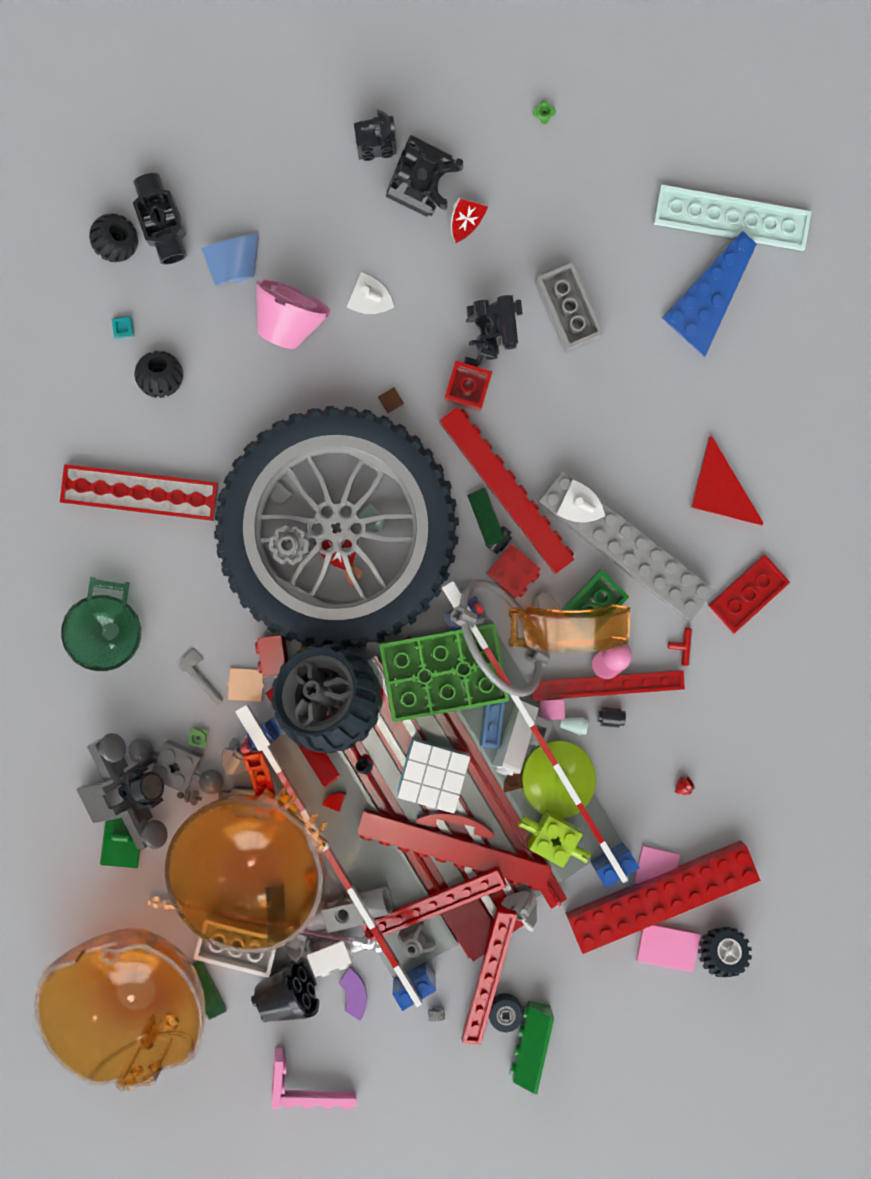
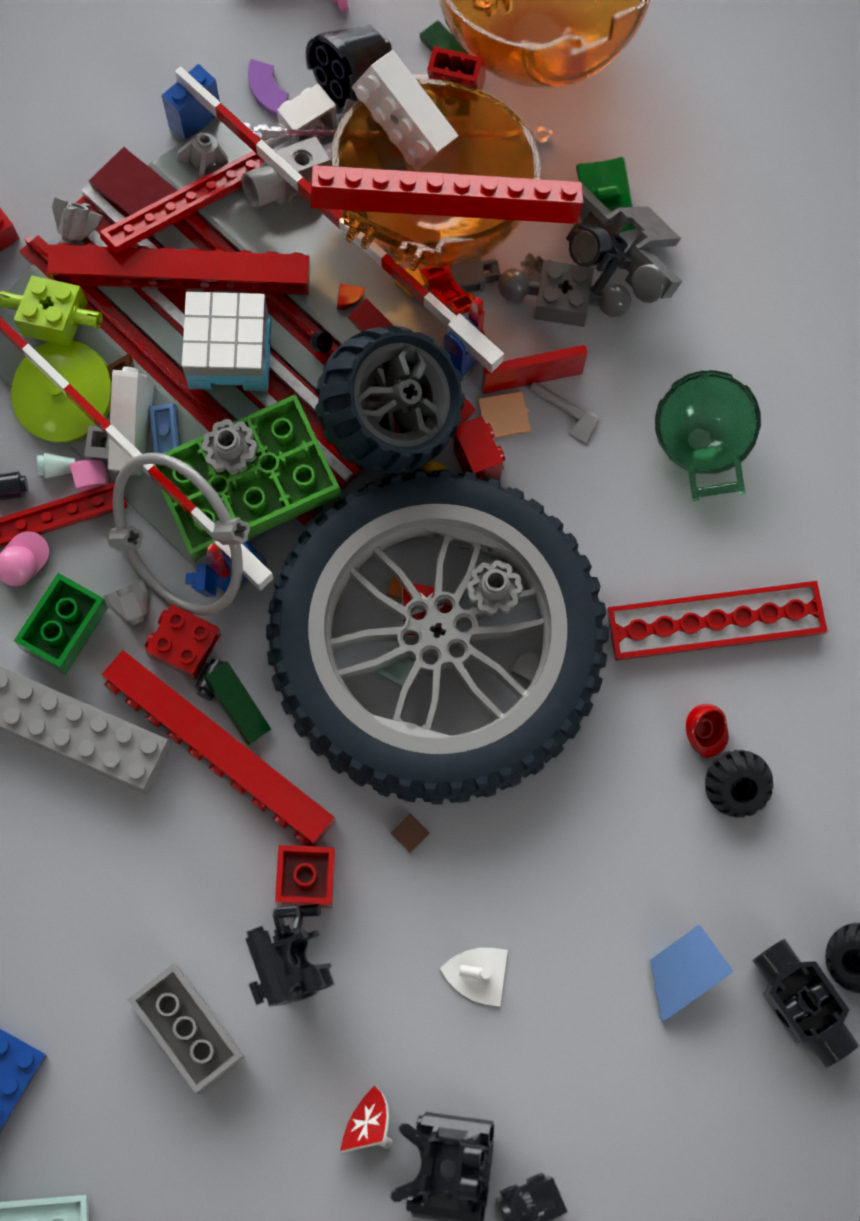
camera: 155 degrees right, 15 degrees down
(123, 327) = (808, 838): teal tile -> none
(169, 416) = (707, 730): none -> red hat
(193, 737) = (549, 329): bright green plate -> none
(208, 956) = (456, 67): none -> red brick
(209, 709) = (535, 368): none -> red tile
(232, 758) = (494, 320): light grey brick -> none
(244, 838) = (446, 194): none -> red brick
(257, 921) = (404, 110): none -> white brick
(286, 315) = (585, 910): bright pink cone -> none
(430, 819) = (170, 307): slope -> none
(436, 1014) = (157, 85): light grey axle -> none
(458, 698) = (229, 446): none -> light grey plant
(489, 607) = (203, 580): none -> blue tile
(489, 976) = (99, 136): plate -> none
(507, 1006) = (70, 105): black wheel -> none
(532, 1046) = (27, 74): green slope -> none
(570, 629) = (85, 573): clear orange windscreen -> none
(580, 504) = (107, 747): white shield -> none

